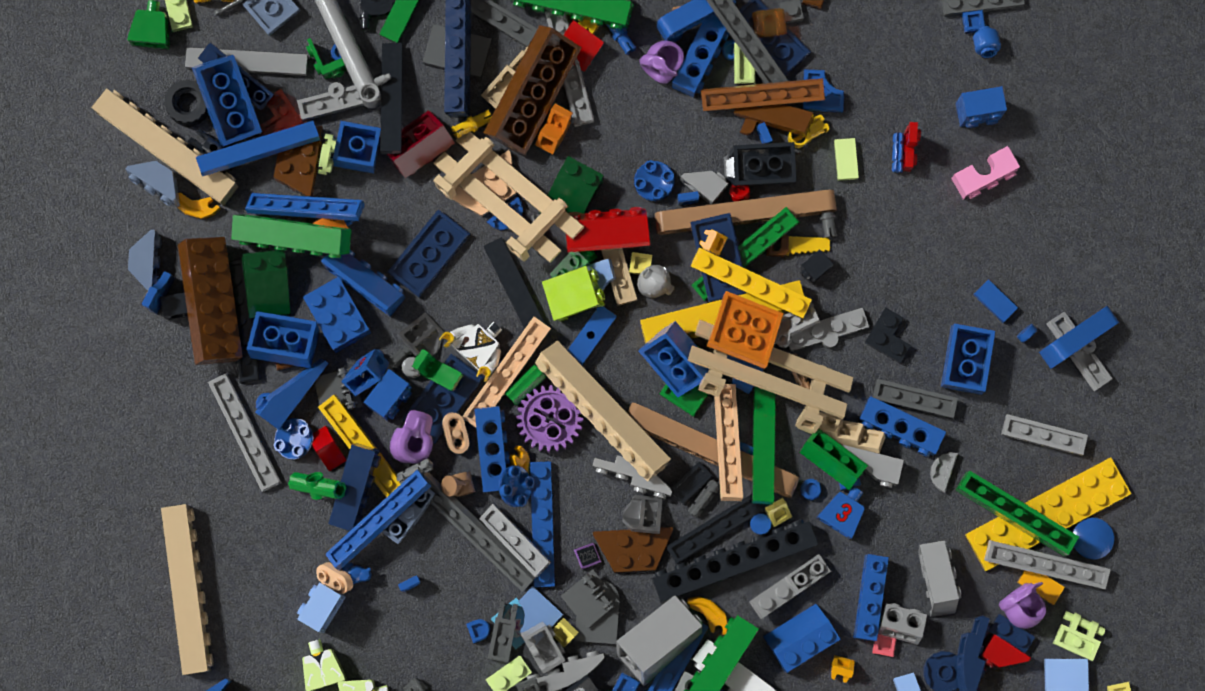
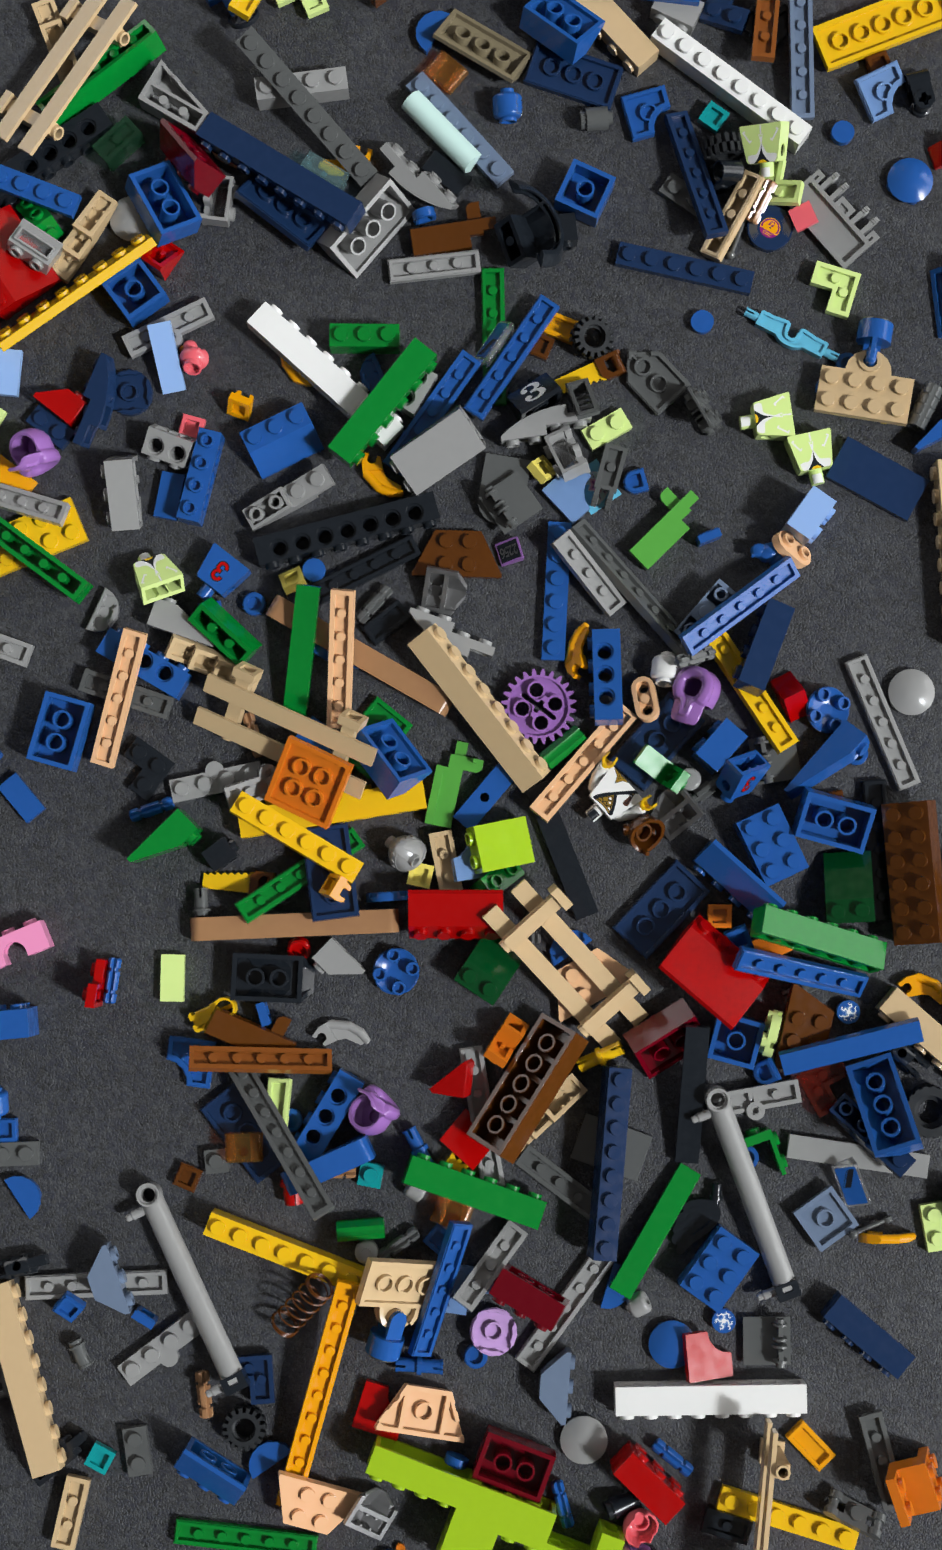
camera: 175 degrees left, 5 degrees up
(220, 461) = (911, 692): none -> light grey dish
(251, 37) = (850, 1183): none -> slope
(260, 651) = (877, 479): none -> dark blue tile
(261, 180) = (847, 1011): none -> blue tile
(317, 485) = (805, 650): green piece -> none
(328, 123) = (766, 1072): none -> blue tile
(360, 232) = (739, 936): none -> blue plate
(377, 251) = (719, 915): none -> orange plate
(389, 199) = (703, 968): none -> red slope
(442, 461) = (664, 670): none -> white head
(448, 586) = (666, 530): none -> bright green piece
(450, 315) = (642, 833): none -> reddish brown helmet
(458, 484) = (647, 640): medium nougat piece -> none
(515, 486) = (583, 631): blue dish -> none
(592, 90) = (457, 1082): none -> red slope
(624, 343) = (447, 784): none -> bright green piece
(658, 9) = (371, 1175): none -> teal plate
(666, 243) = (387, 896): none -> blue tile
(688, 198) = (359, 946): blue tile -> none
(696, 128) = (340, 1030): none -> light grey piece
(859, 275) = (173, 834): none -> green slope
(881, 301) = (151, 809): none -> blue axle
(897, 580) = (169, 495): none -> blue tile
(899, 502) = (157, 577): none -> yellowish green torso
(920, 392) = (119, 697): none -> light nougat plate

